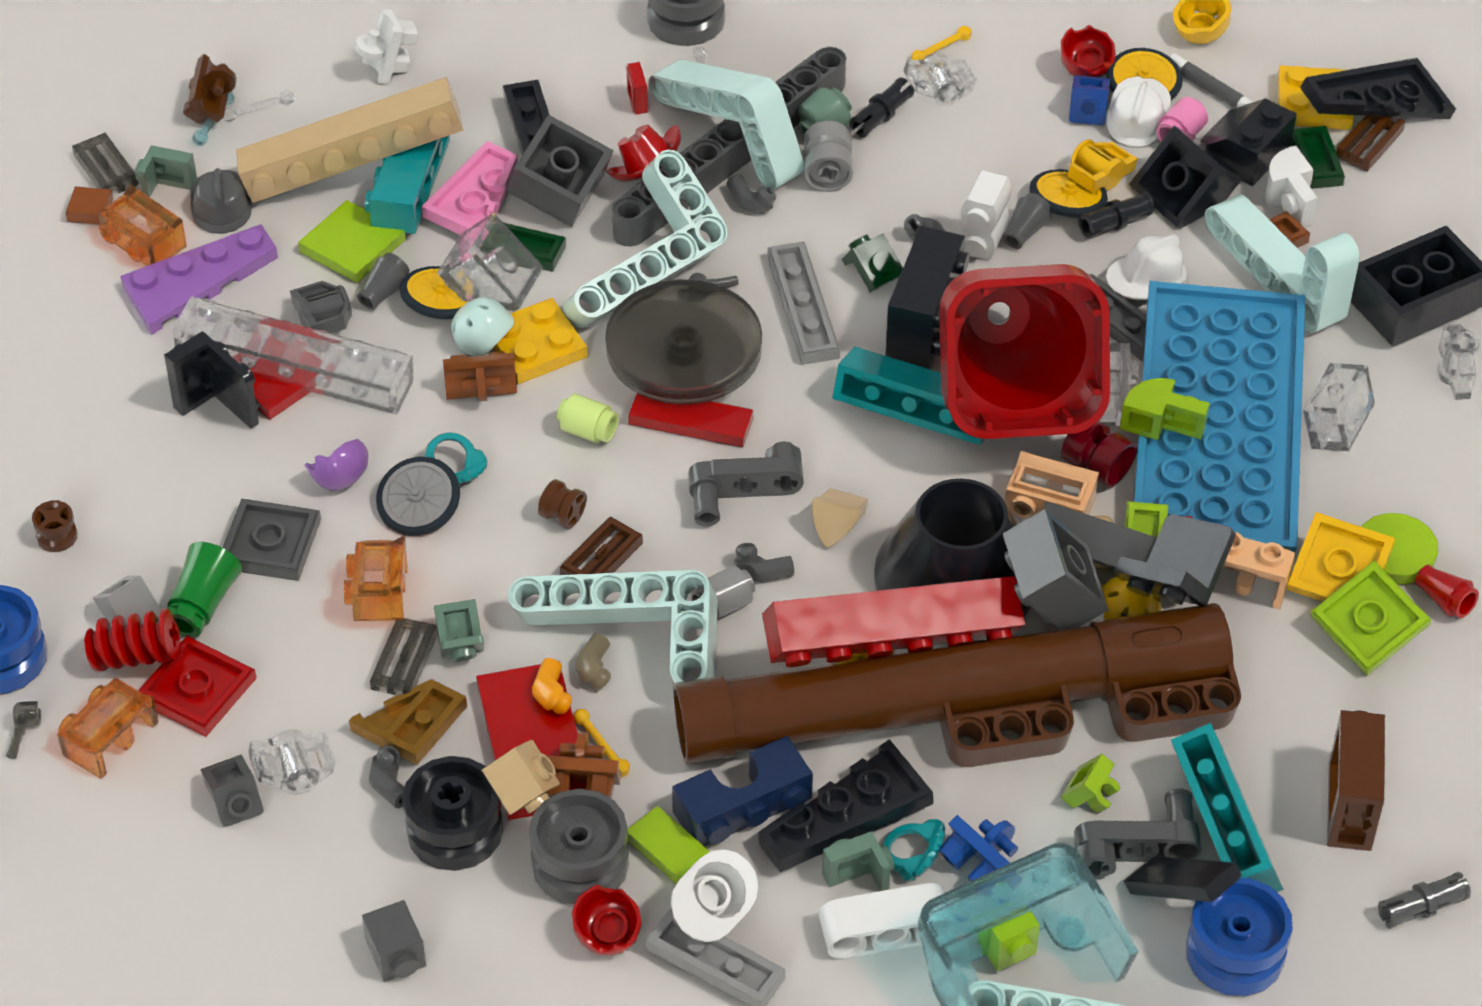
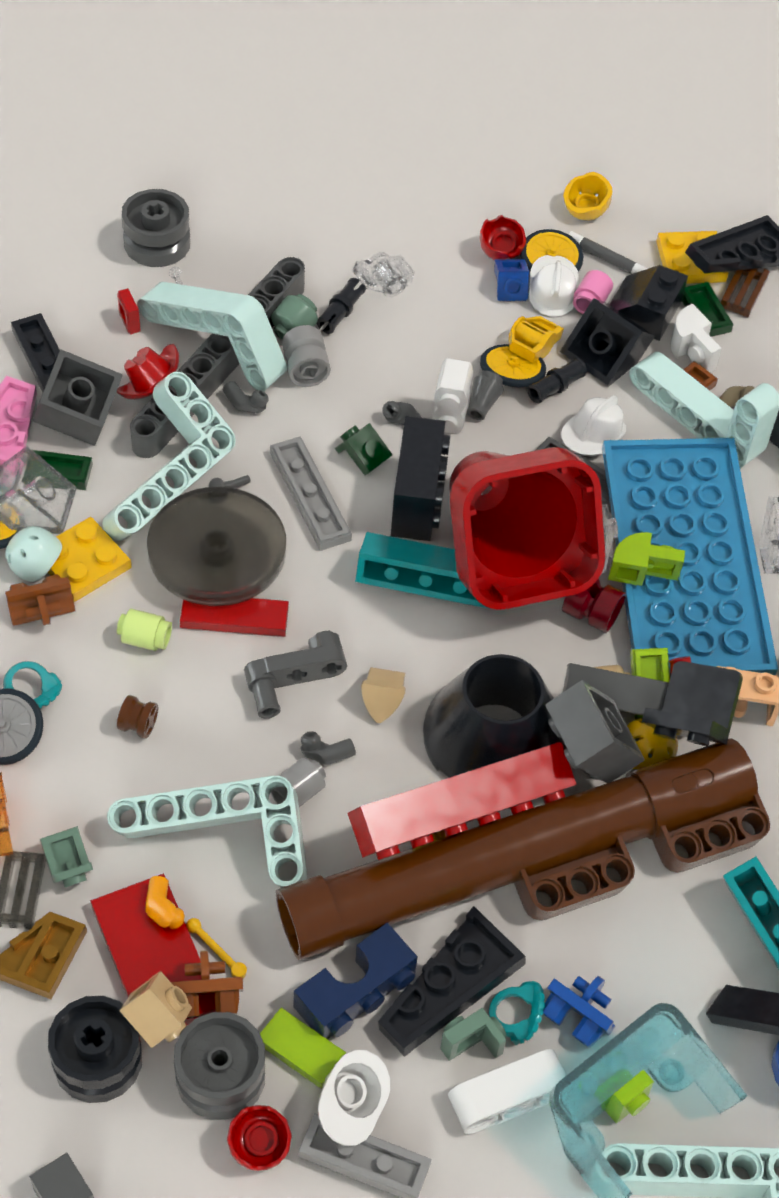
camera: 15 degrees left, 5 degrees up
(384, 775) = (21, 1016): dark grey arm -> none
(589, 662) = (190, 870): dark tan arm -> none
(608, 556) = (167, 784): reddish brown tile -> none
(963, 33) = (393, 231): yellow hinge -> none
(1044, 480) = (560, 641): light nougat window -> none
(1088, 783) = (656, 922): lime tile -> none
(1139, 841) = (681, 980): dark grey beam -> none

